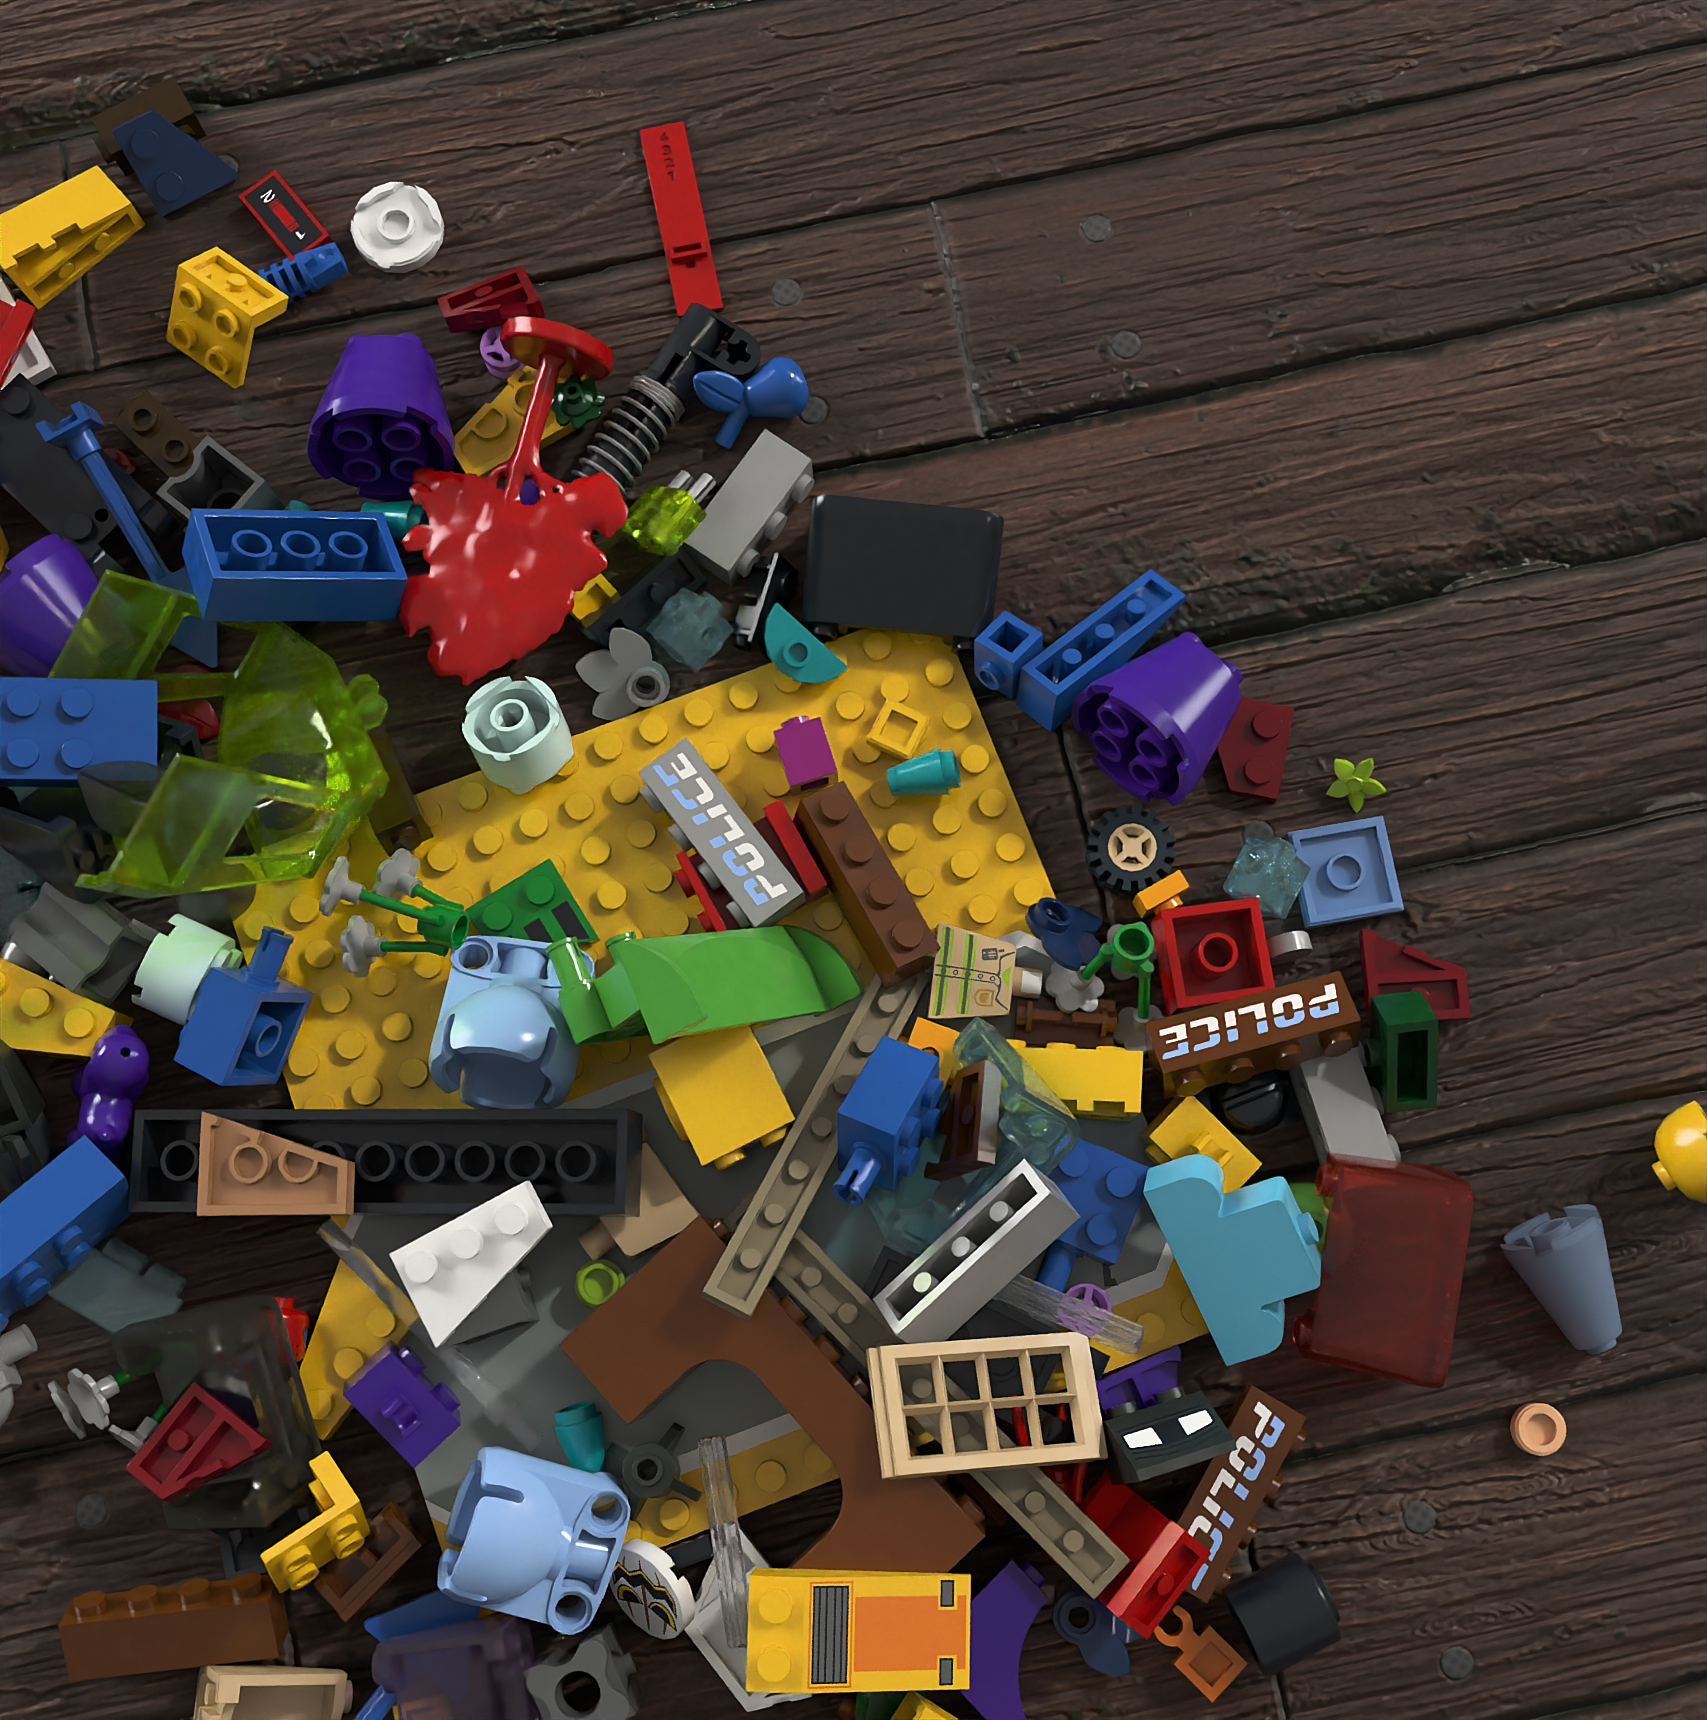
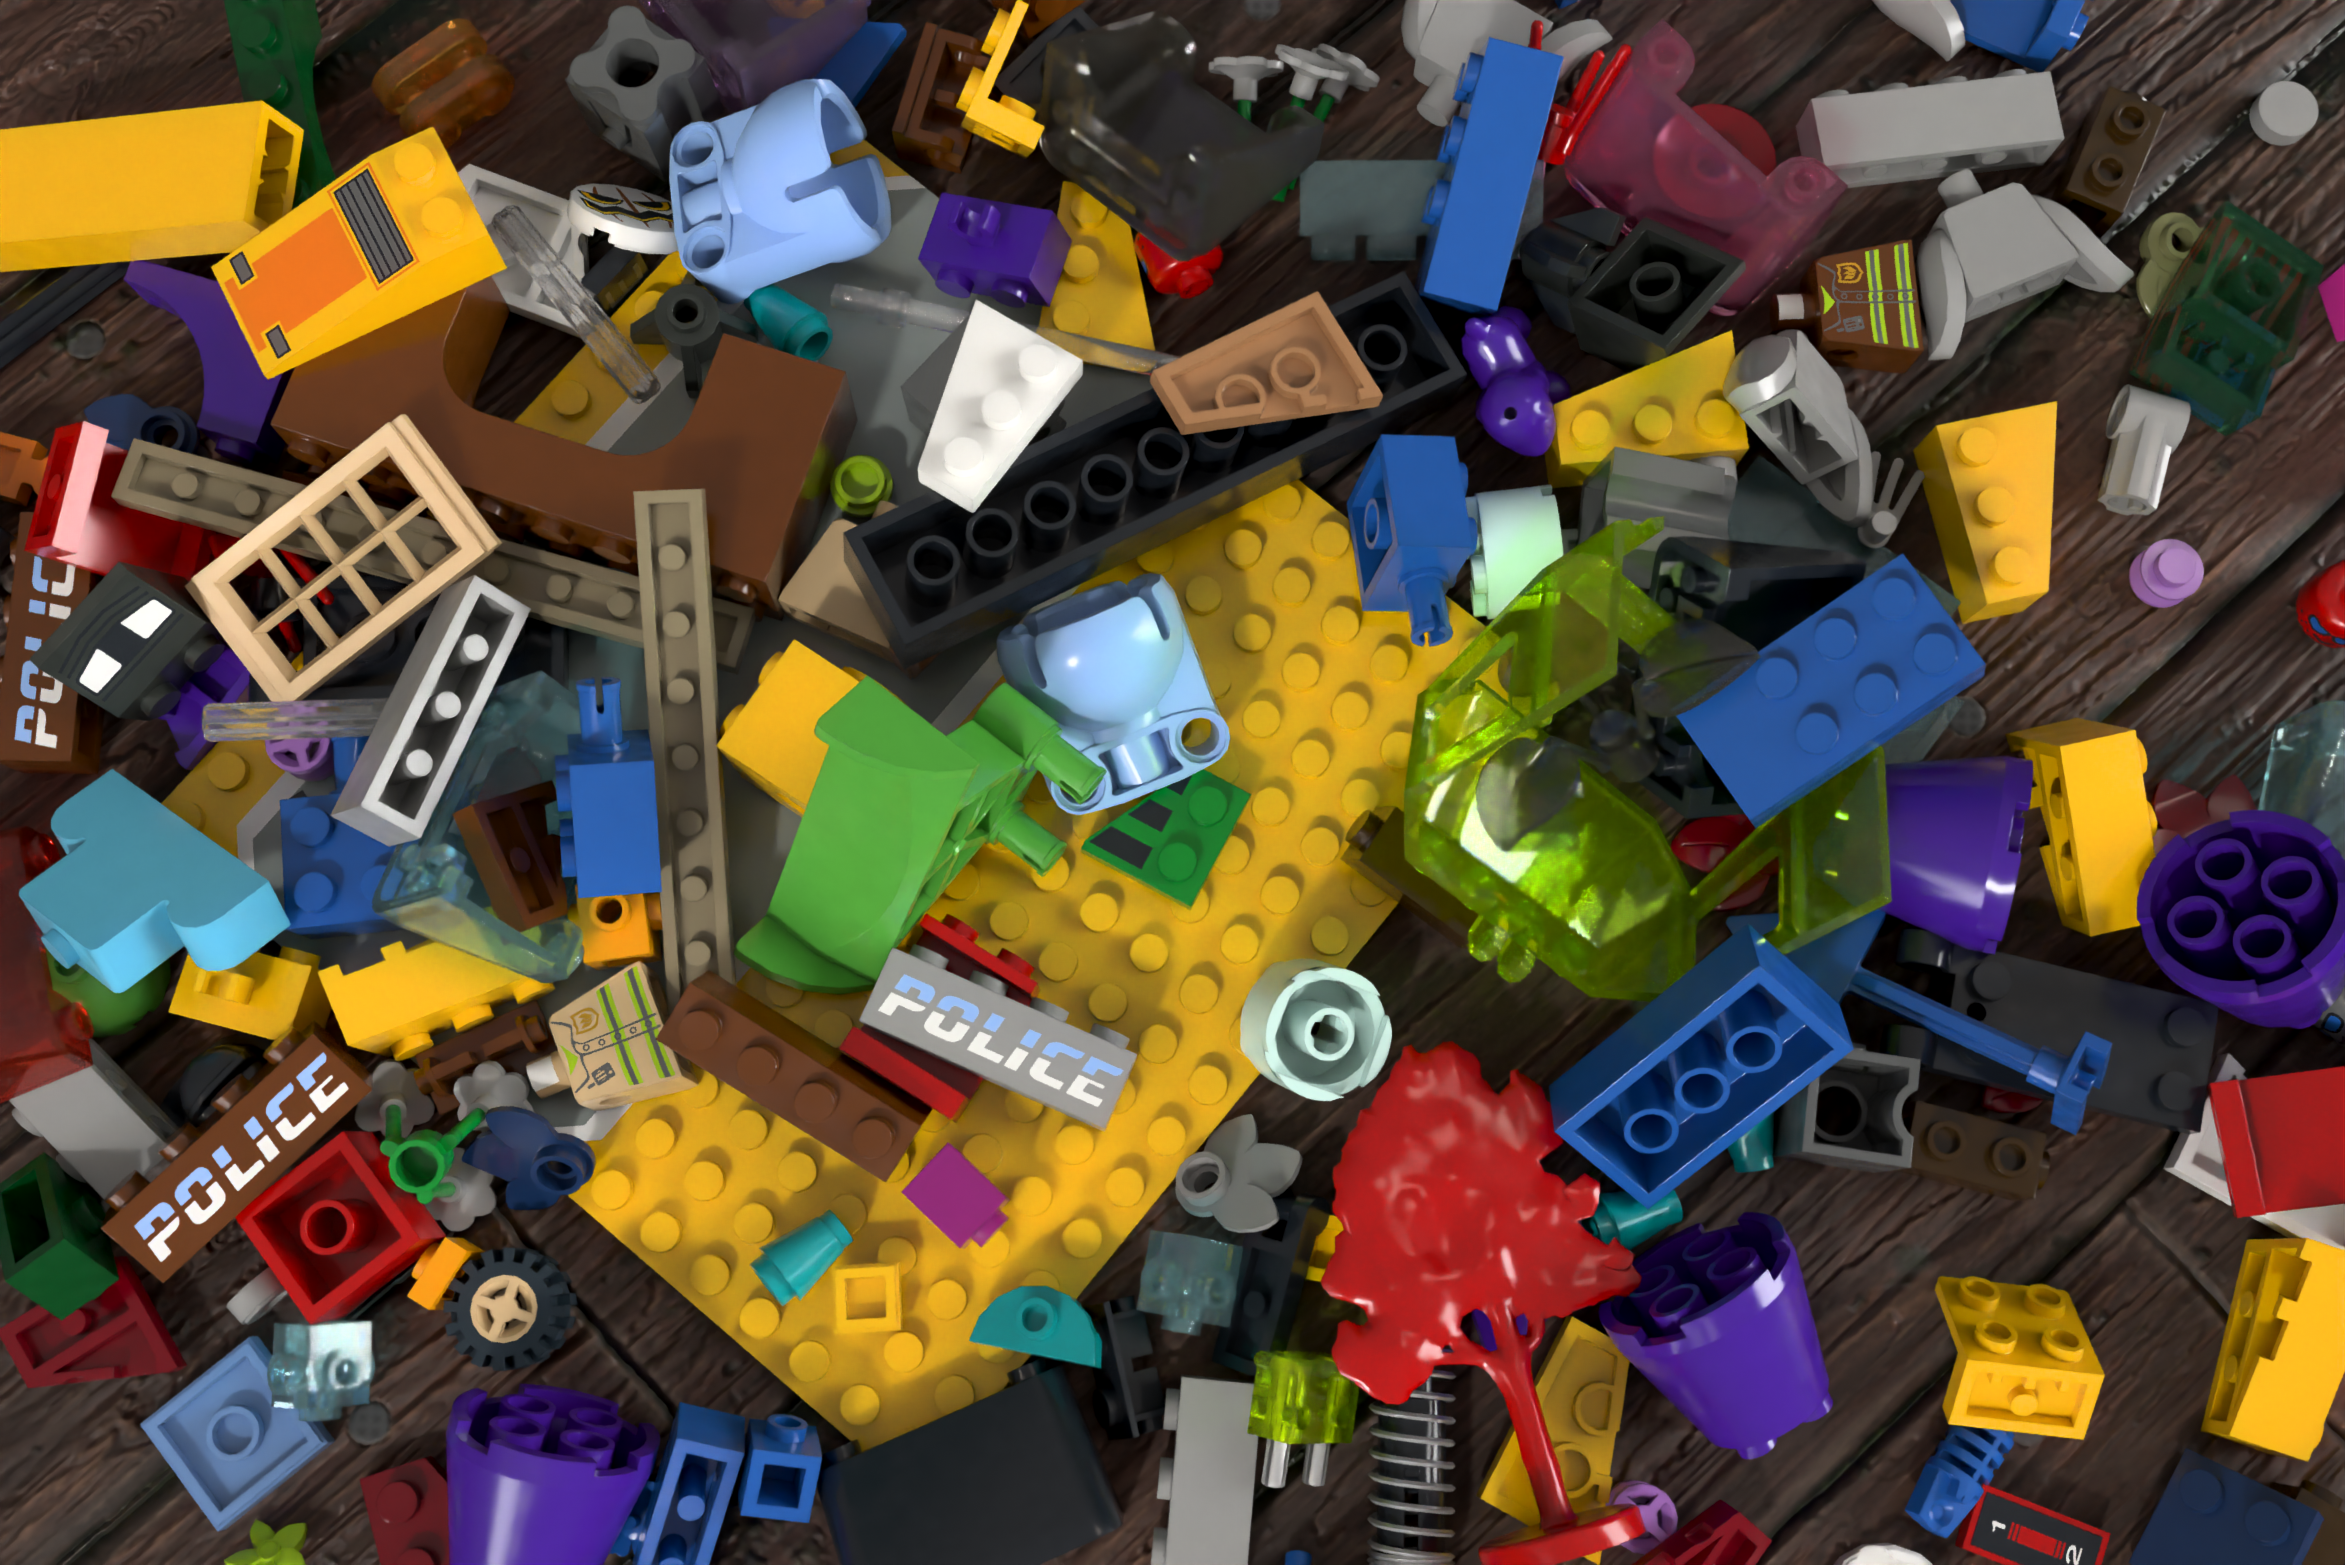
camera: 145 degrees right, 0 degrees up
(195, 1445) = (1175, 85): dark red wing -> none
(441, 925) = (1253, 746): plant -> none
(576, 402) = (1500, 1493): dark green plant -> none

